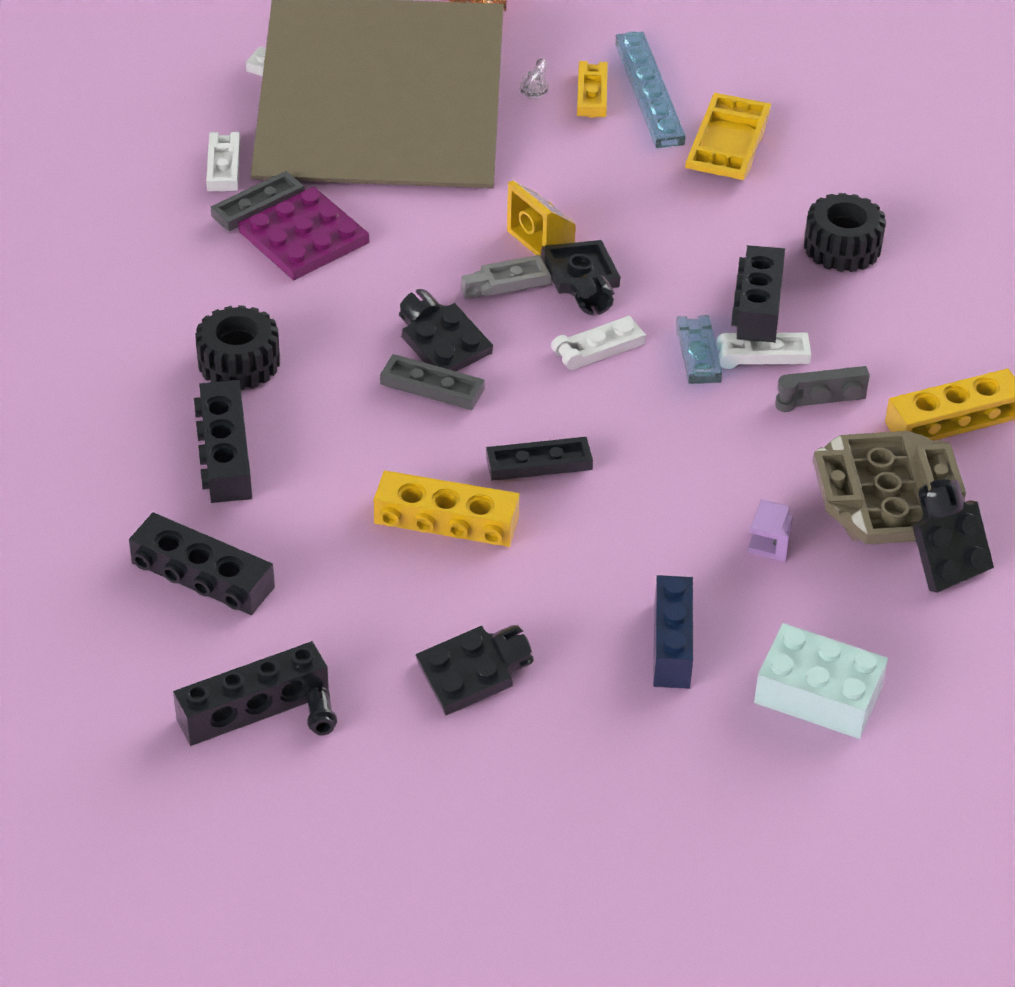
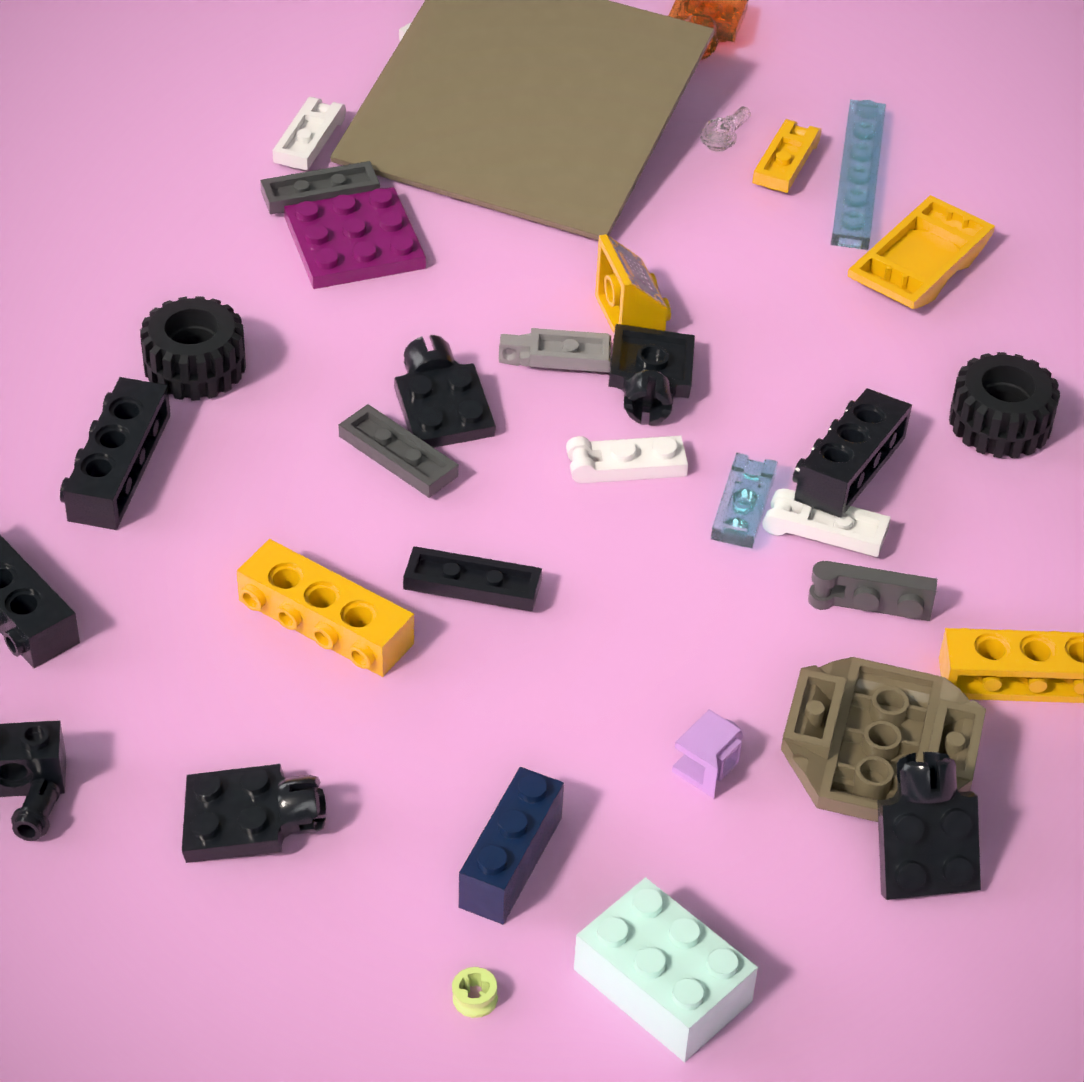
camera: 20 degrees right, 0 degrees up
(705, 730) = (488, 995): none -> yellowish green bush

